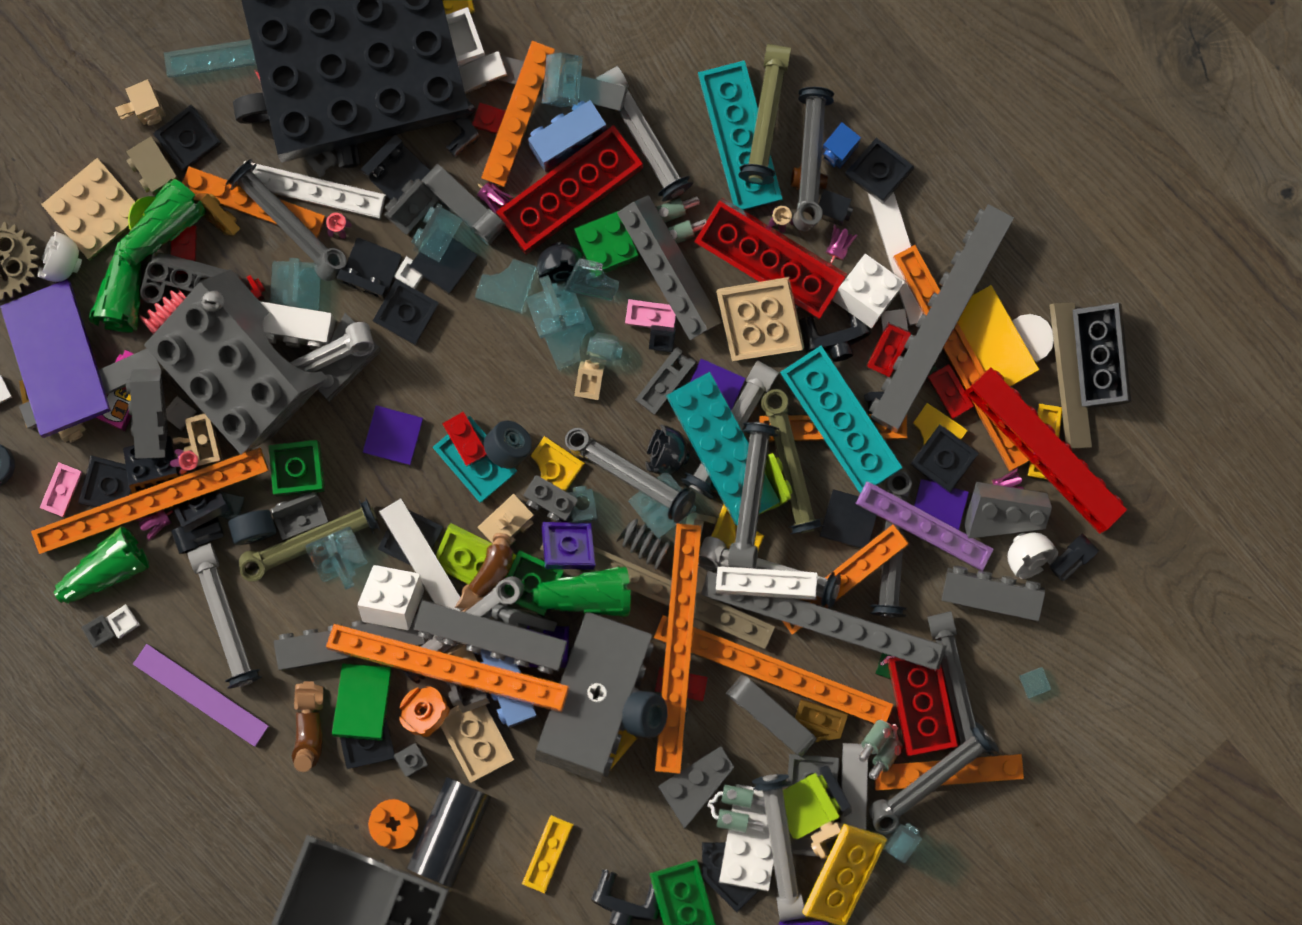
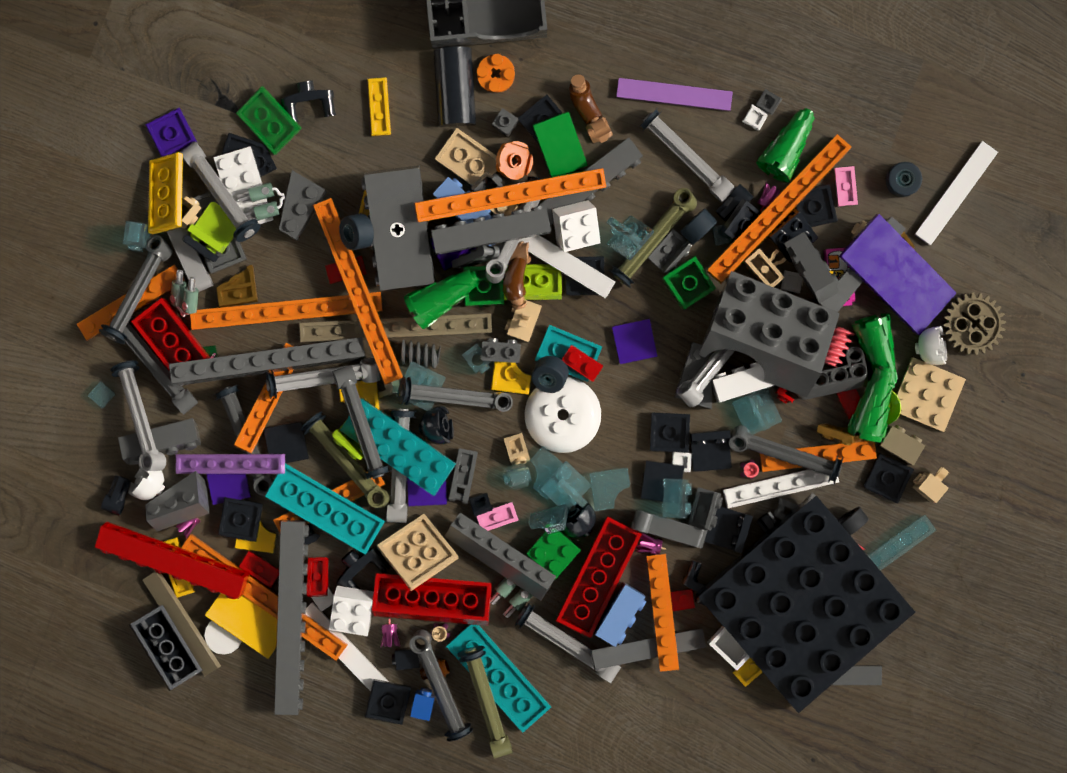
camera: 155 degrees right, 5 degrees up
(186, 460) = (768, 247): coral piece -> none
(213, 296) = (804, 367): light grey hinge -> none
(481, 71) = (704, 630): white slope -> none
(522, 368) = (567, 434): none -> white brick
(562, 79) = (642, 651): clear light blue brick -> none
(568, 545) = (471, 324): dark purple tile -> none
(766, 583) = (318, 366): white plate -> none
(771, 715) = (271, 278): dark grey beam -> none
(1010, 575) = (150, 458): none -> light grey piece

